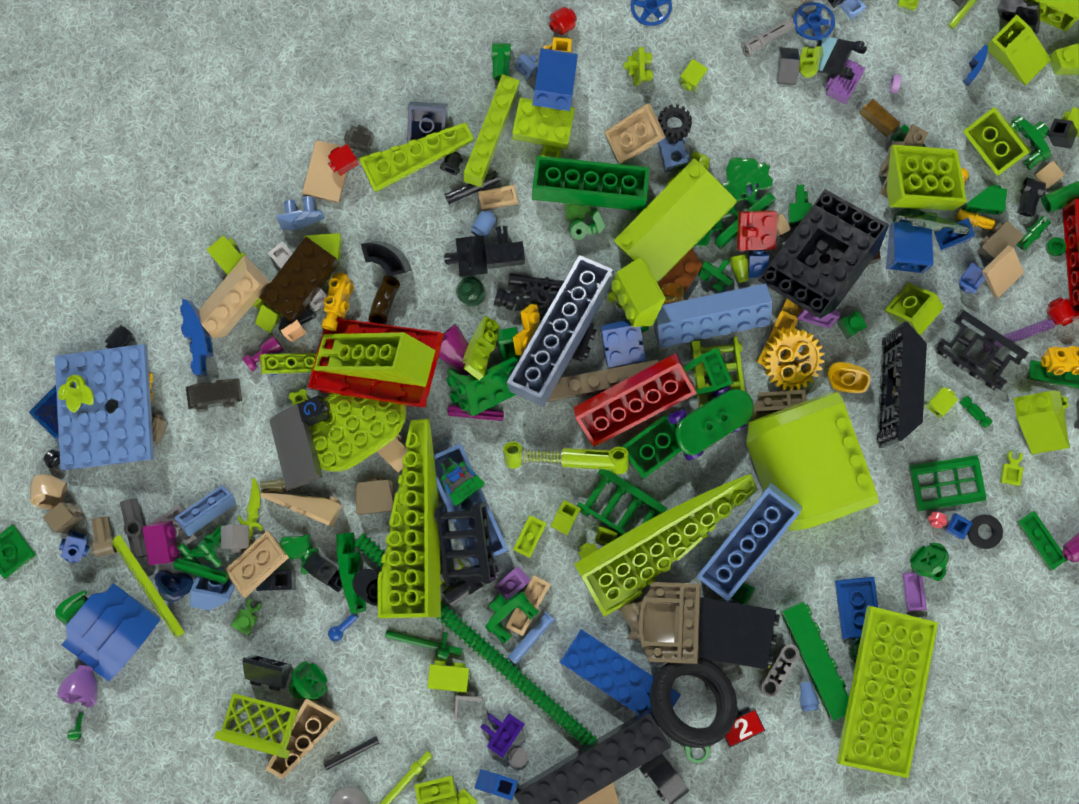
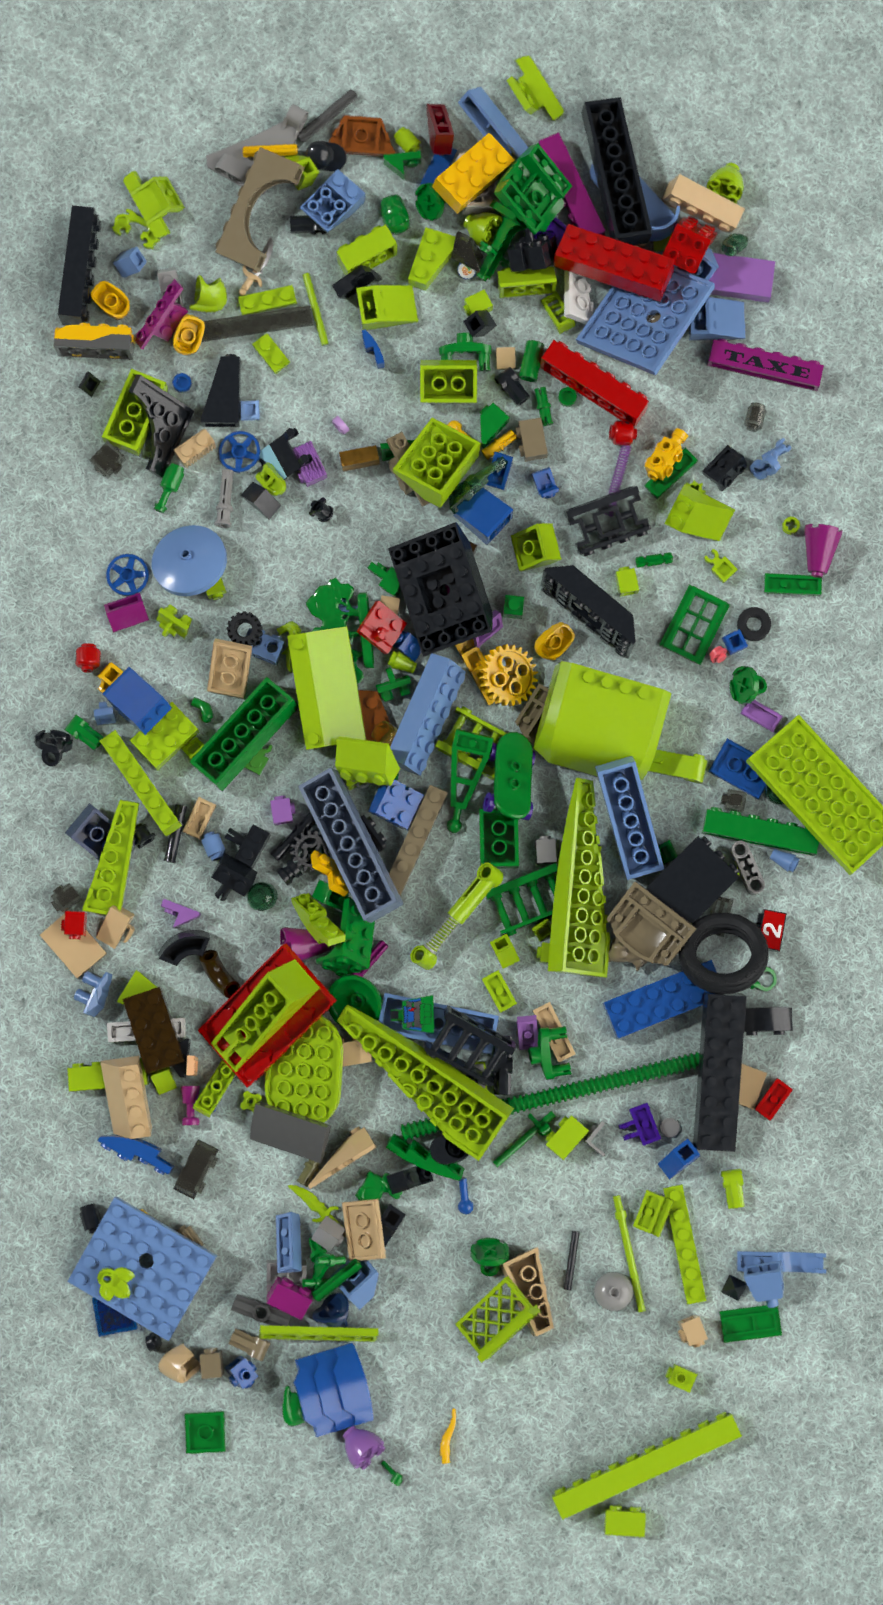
camera: 55 degrees left, 0 degrees up
(129, 754) = (444, 1445): none -> yellow animal
(246, 619) = (402, 1272): bright green plate -> none
(266, 671) = (458, 1282): black slope -> none
(314, 410) = (271, 1094): black brick -> none
(340, 295) = (190, 1008): yellow brick -> none
(365, 193) = (115, 926): none -> tan piece
(374, 496) = (376, 1095): dark tan torso -> none
(410, 240) = (185, 914): none -> medium lavender slope
(441, 412) = (346, 991): none -> green dish
(475, 43) = (54, 742): none -> black tile
(532, 636) = (581, 1047): medium blue pin -> none
(551, 258) = (282, 810): none -> medium lavender brick
(579, 228) = (274, 769): green leg -> none
(589, 139) = (205, 708): none -> green arm
(620, 25) = (126, 612): none -> magenta brick
(634, 400) = (450, 827): red brick -> none
(672, 492) = (546, 850): none -> light grey brick
(697, 43) = (189, 560): none -> medium blue dish
(815, 117) = (321, 510): none -> black brick
(822, 553) = (679, 765): none -> lime door
(826, 619) = (734, 800): none -> clear smoke brick
(1003, 271) = (557, 455): tan tile -> none

